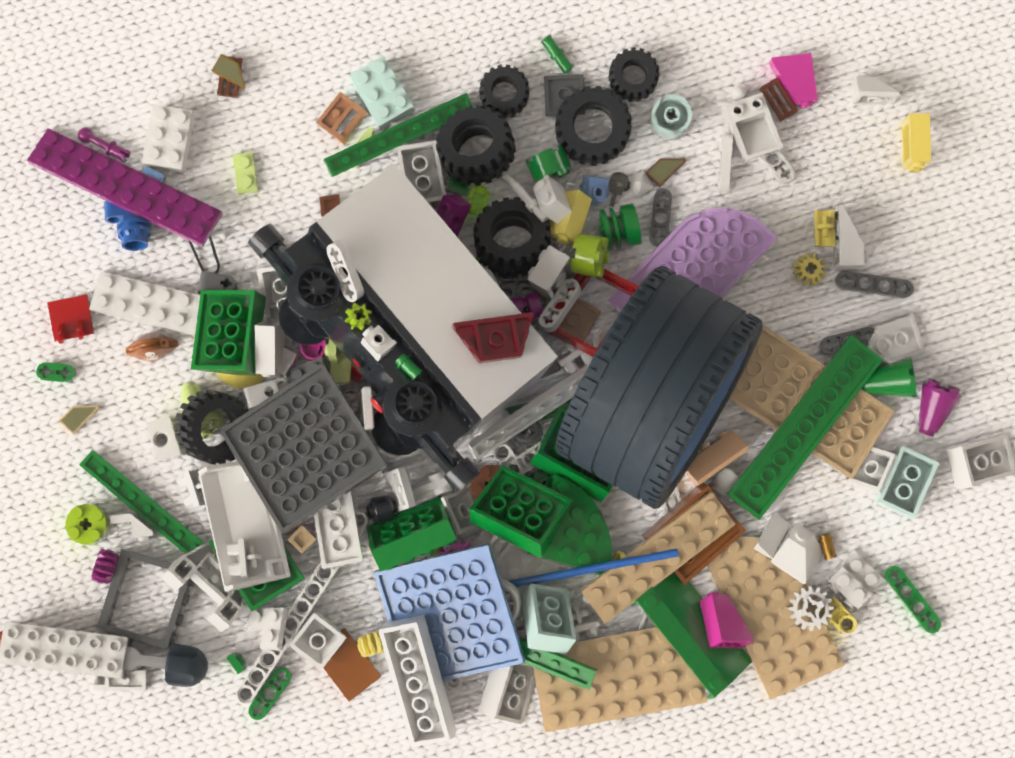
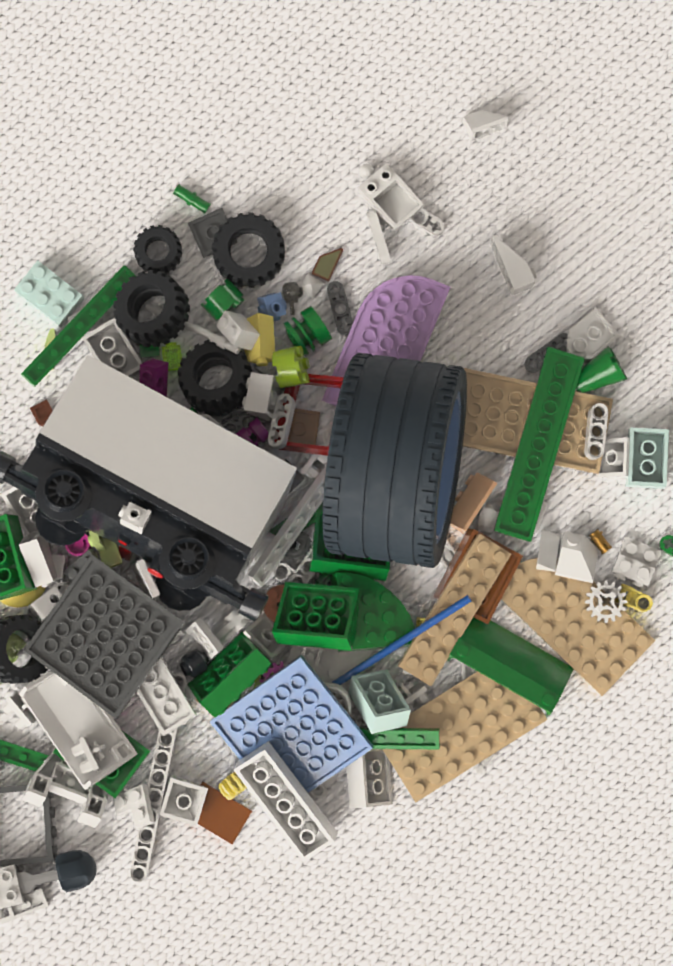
camera: 20 degrees left, 0 degrees up
(237, 662) = (120, 848): green plate -> none
(256, 702) = (161, 881): green beam -> none
(301, 539) = (134, 717): tan brick -> none
(337, 113) = (16, 329): nougat plate -> none
(339, 251) = (95, 479): white beam -> none
(364, 319) = (114, 499): lime gear -> none
(409, 366) = (170, 527): green pin -> none
(495, 337) = (236, 472): dark red wing -> none
(639, 59) = (263, 175): black tyre -> none
(661, 111) = (304, 213): light aqua brick -> none
(724, 623) = (535, 644): dark pink slope -> none
(787, 114) = (416, 172): copper tile -> none
(796, 77) = (412, 137): dark pink slope -> none
(803, 264) = (482, 300): light yellow gear -> none
(824, 228) = (488, 261): light yellow hips -> none
(874, 284) = (552, 296): dark grey beam -> none
(874, 431) = (601, 423): none -> white beam
(916, 141) = (539, 154): light yellow window -> none
(936, 406) = (647, 380): magenta cone -> none

